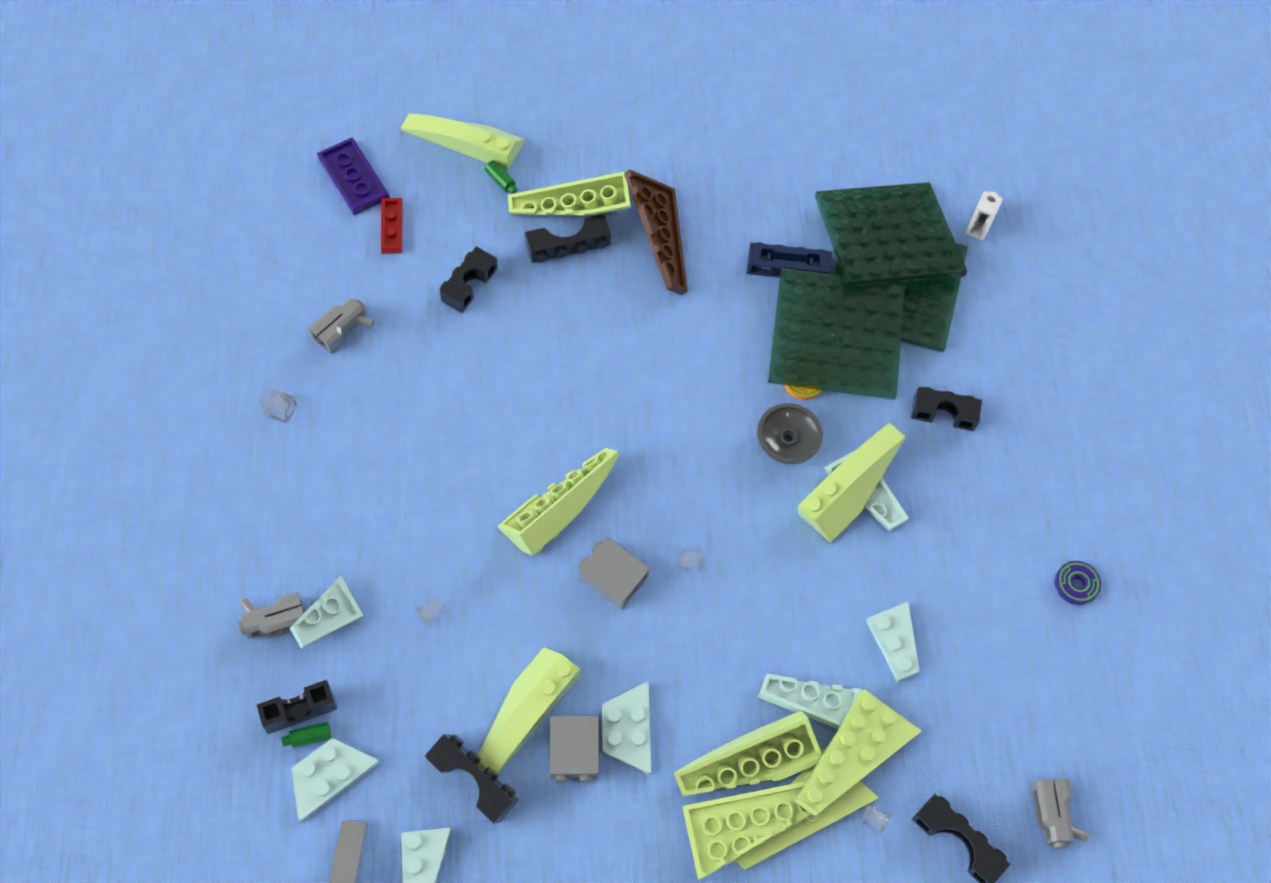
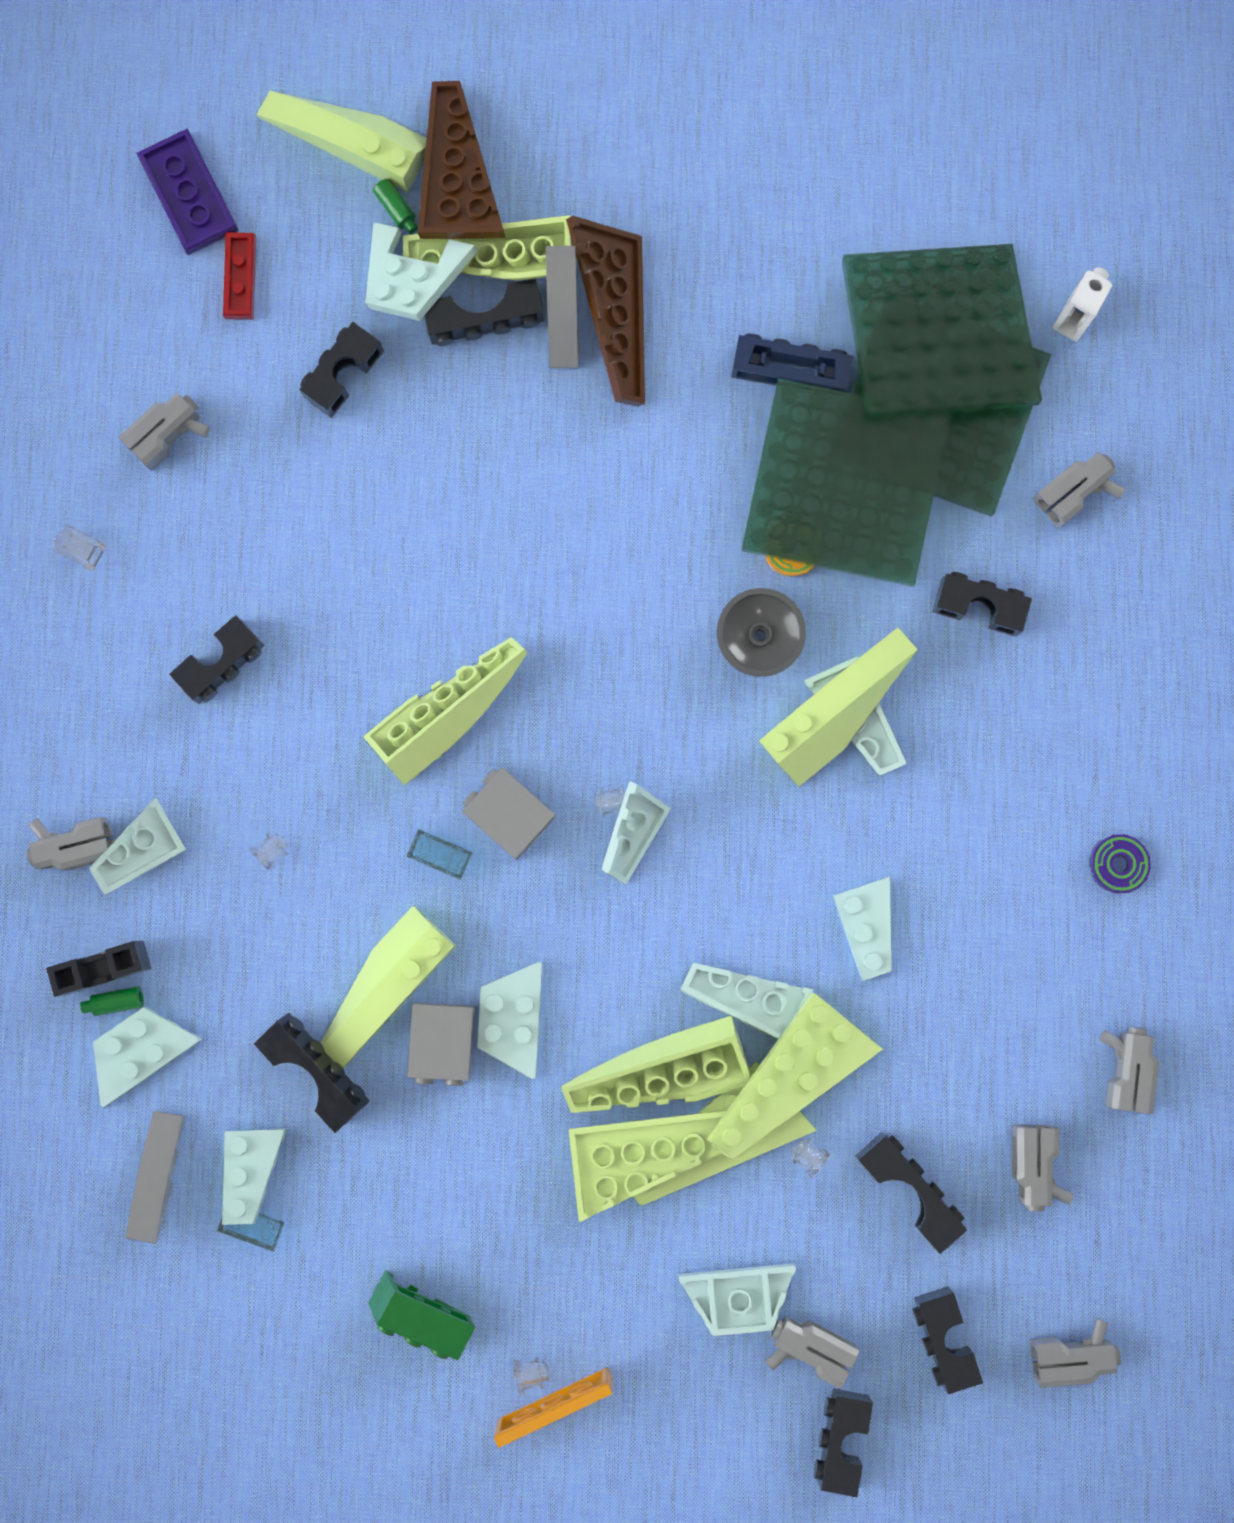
camera: 10 degrees right, 20 degrees up
(373, 490) = (239, 647): none -> black arch
(515, 222) = (407, 284): none -> light aqua wing
(543, 156) = (455, 183): none -> reddish brown wing
(562, 607) = (439, 854): none -> clear light blue tile
(624, 229) = (562, 306): none -> light grey slope
(711, 577) = (633, 832): none -> light aqua wing
(998, 328) = (1091, 477): none -> light grey piece
(1118, 732) = (1135, 1071): none -> light grey piece

